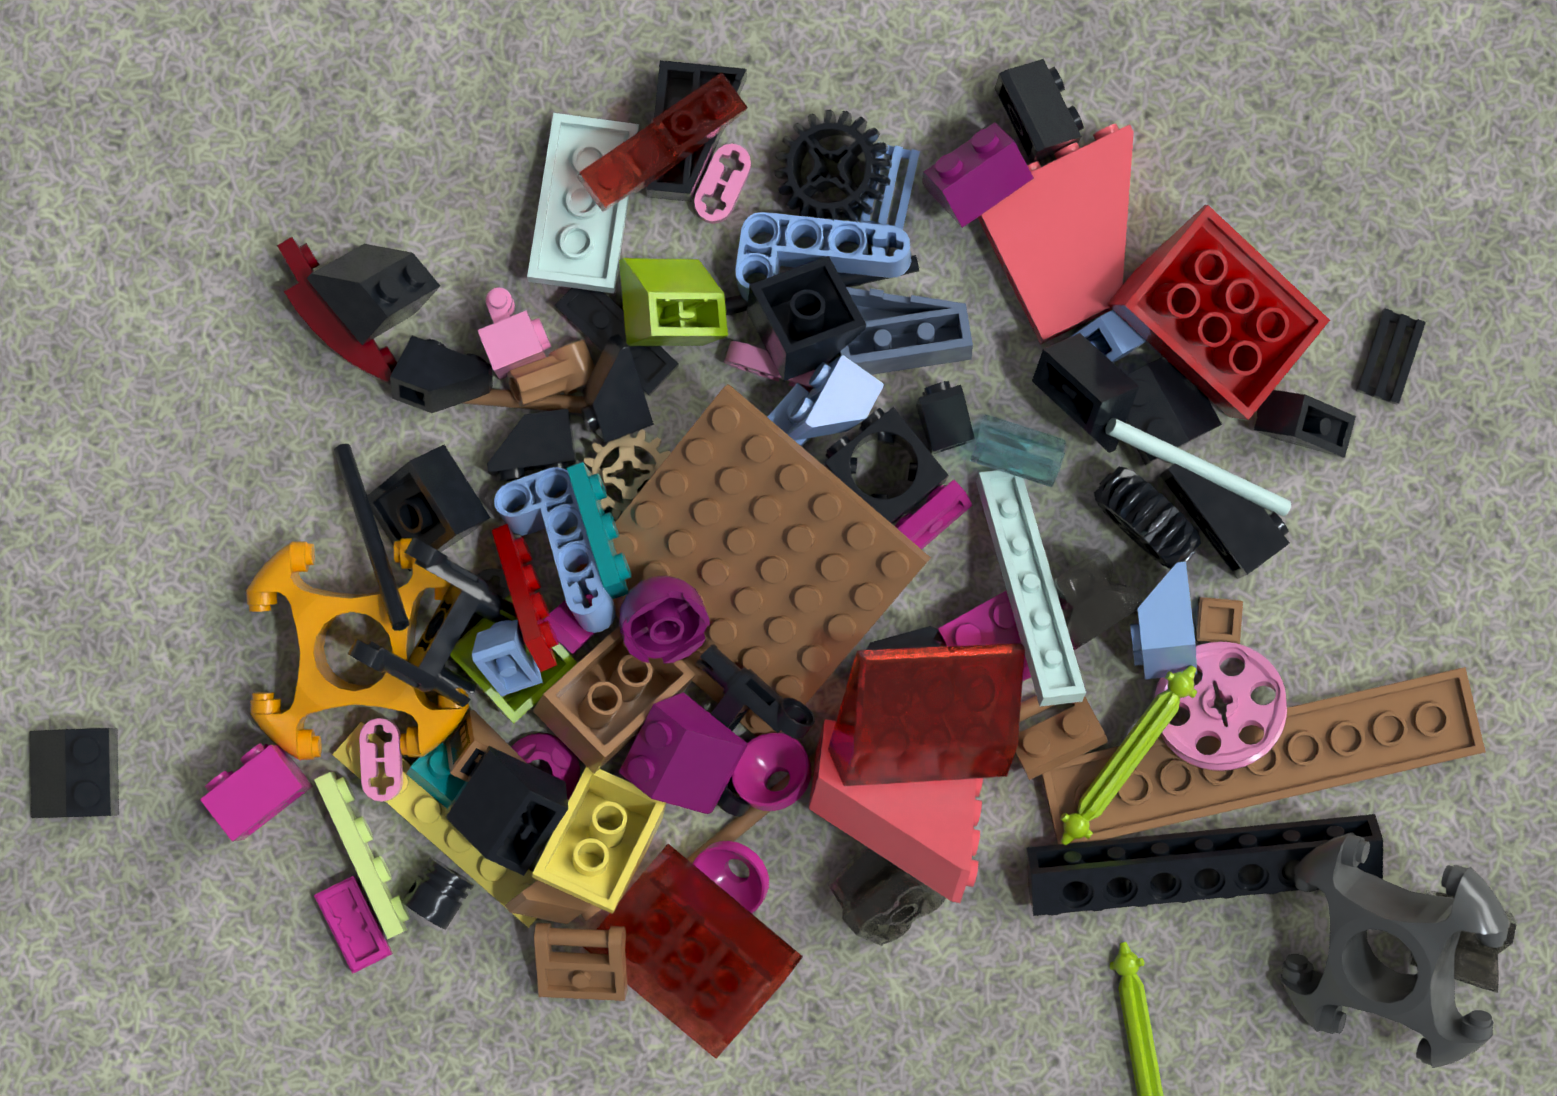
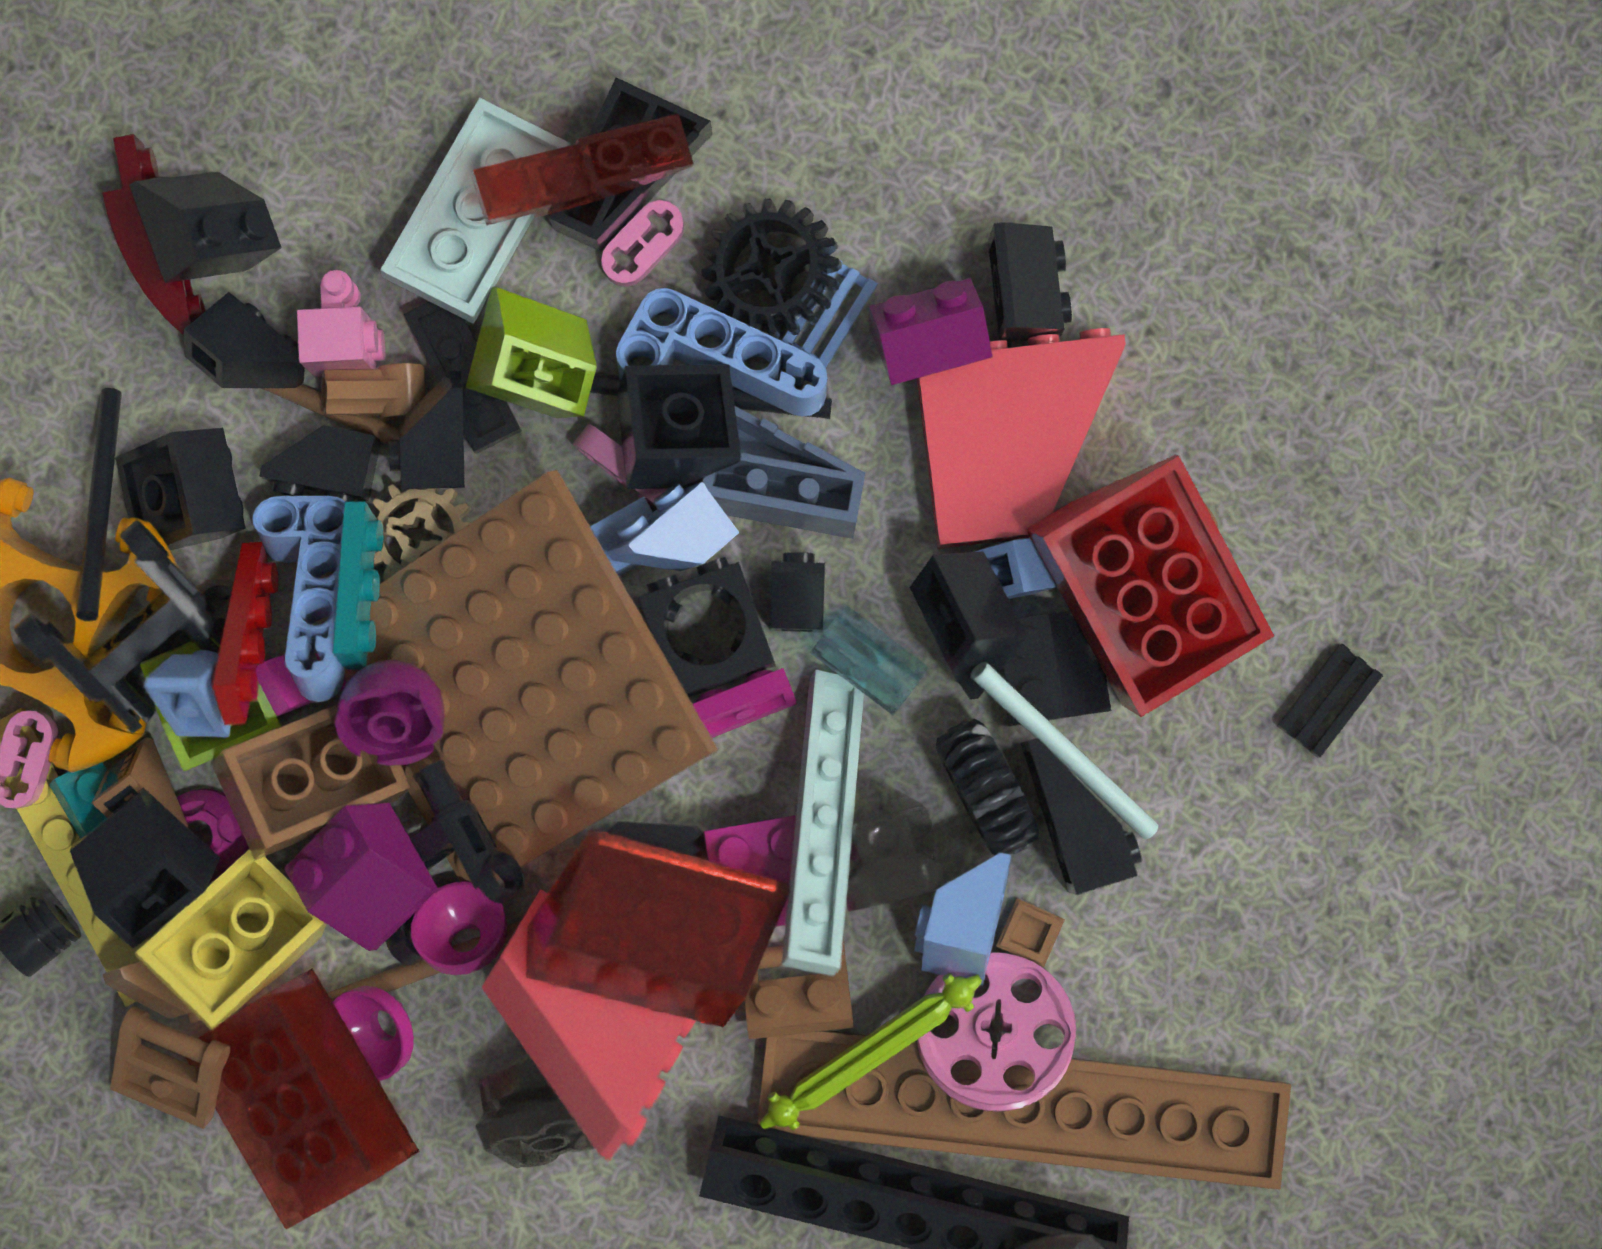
camera: 20 degrees right, 0 degrees up
(1305, 422) = (1206, 742): black slope -> none

